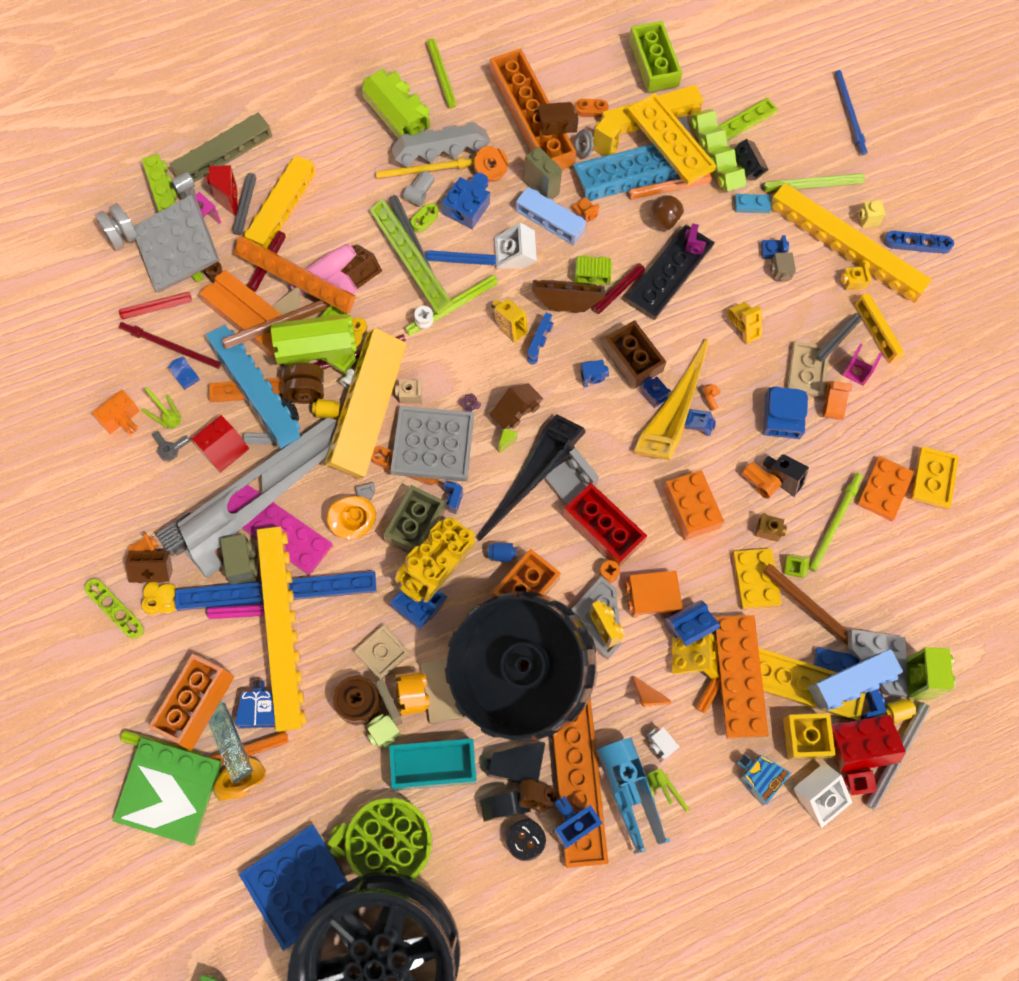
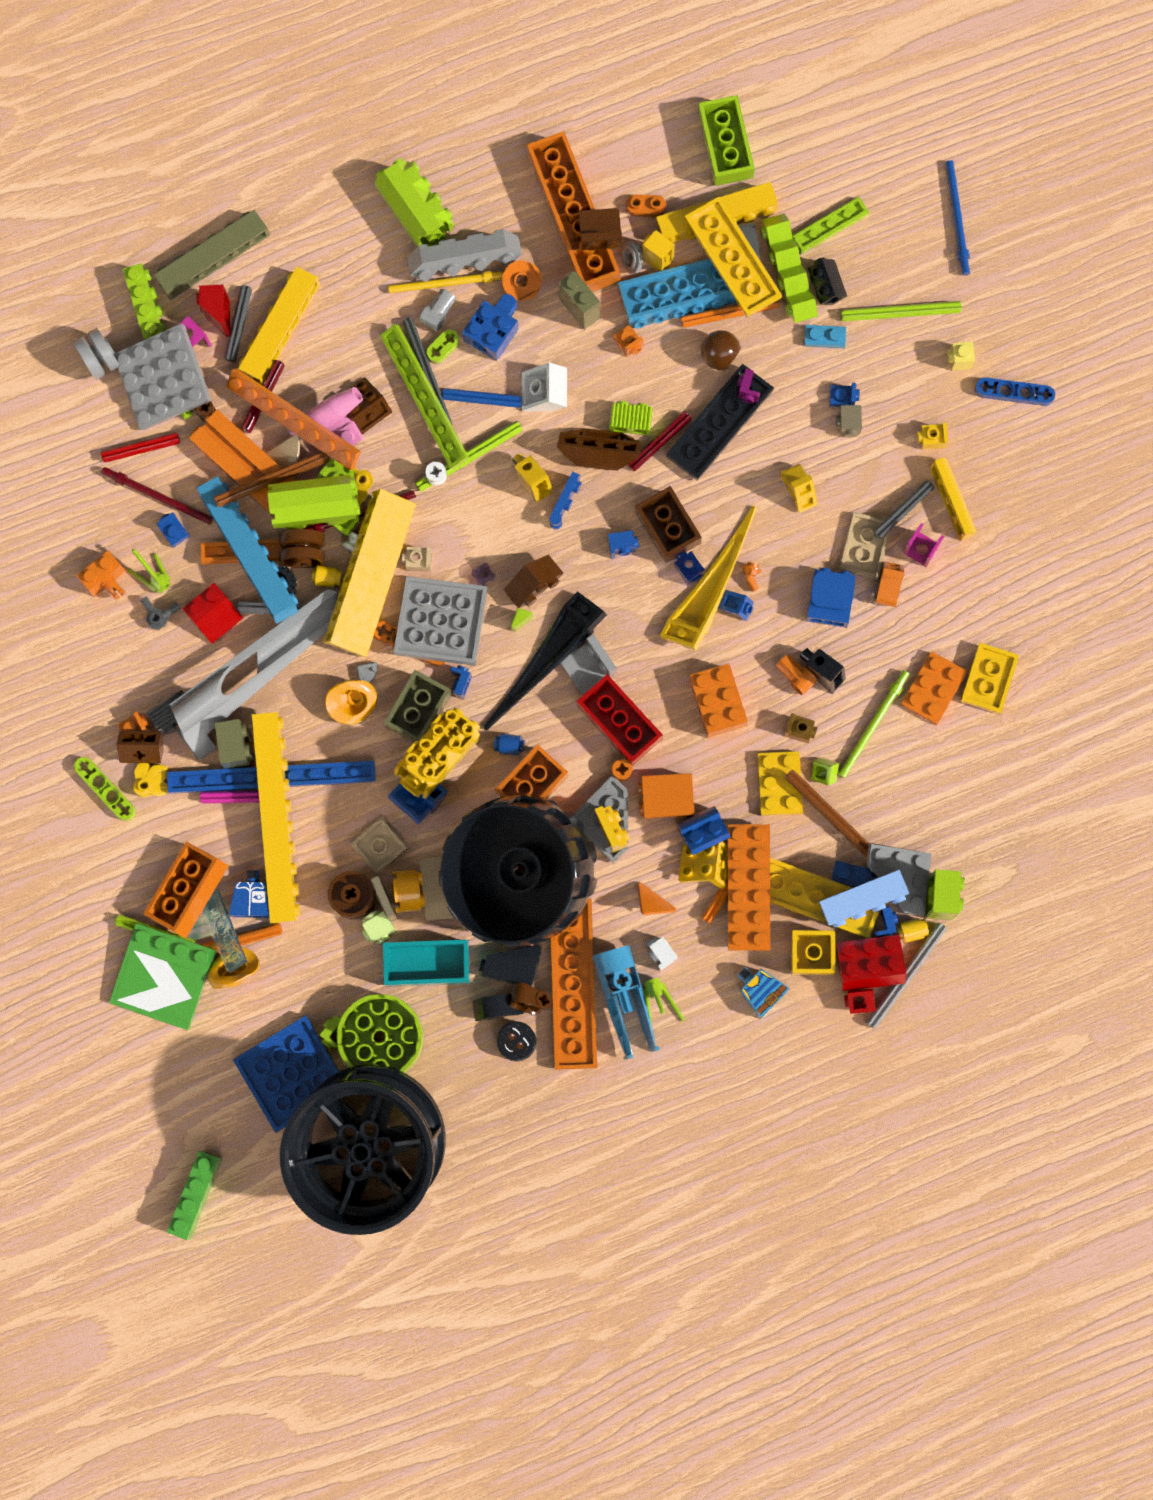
camera: 15 degrees right, 10 degrees up
(184, 185) = (171, 306): light grey piece -> none
(304, 544) = (301, 728): dark pink plate -> none
(441, 73) = (470, 155): lime axle -> none
(550, 216) = (587, 349): light blue brick -> none
(575, 824) = (565, 1028): blue brick -> none
(823, 794) = (822, 1011): white slope -> none
(850, 242) = (931, 391): yellow brick -> none

